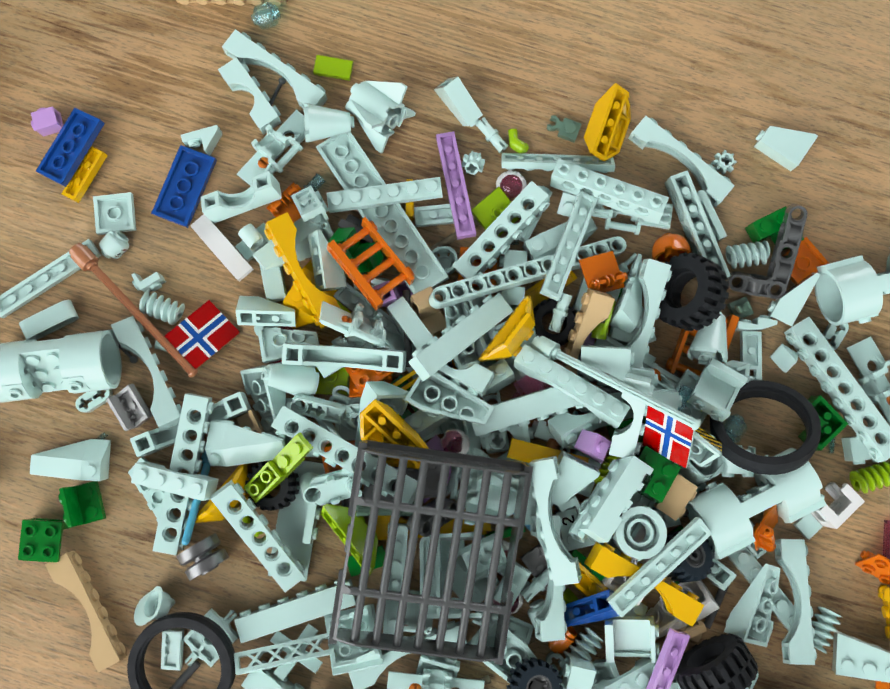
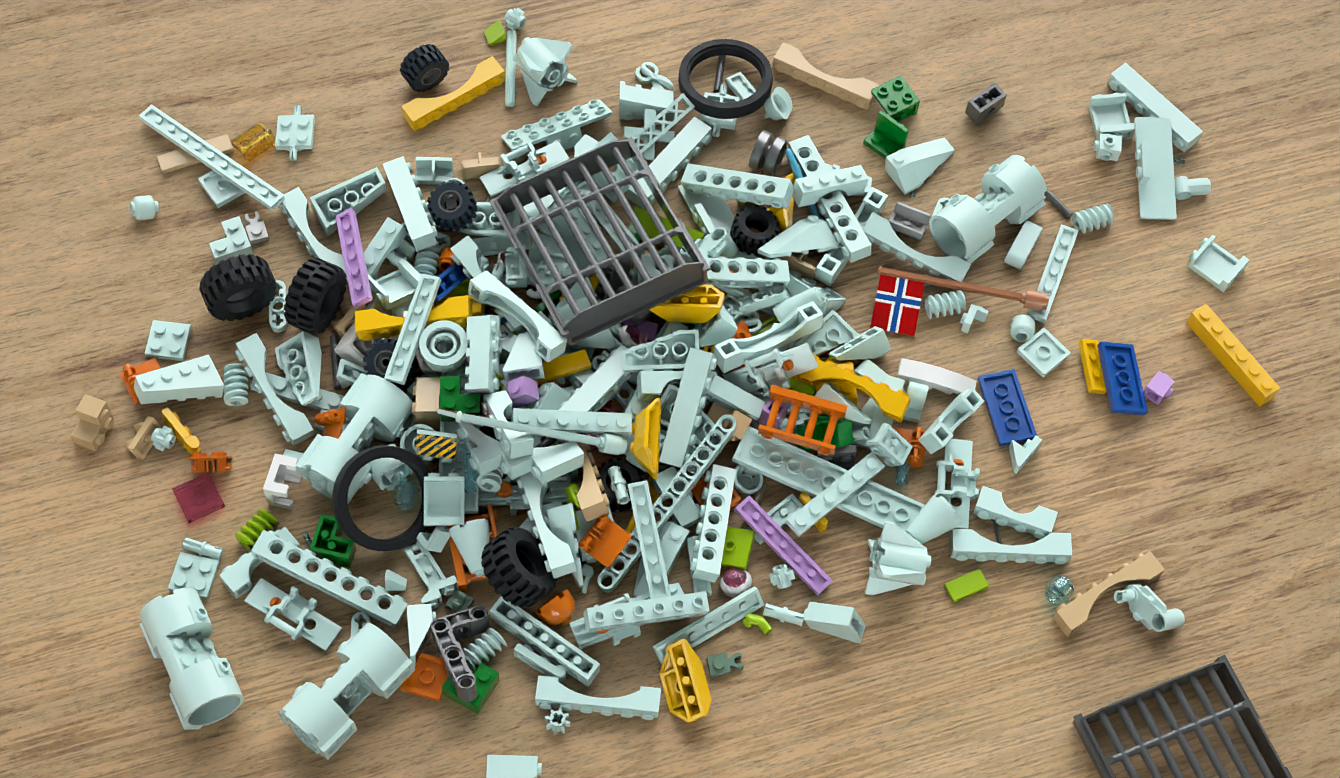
camera: 145 degrees right, 20 degrees down
(279, 468) = (758, 233): lime slope -> none

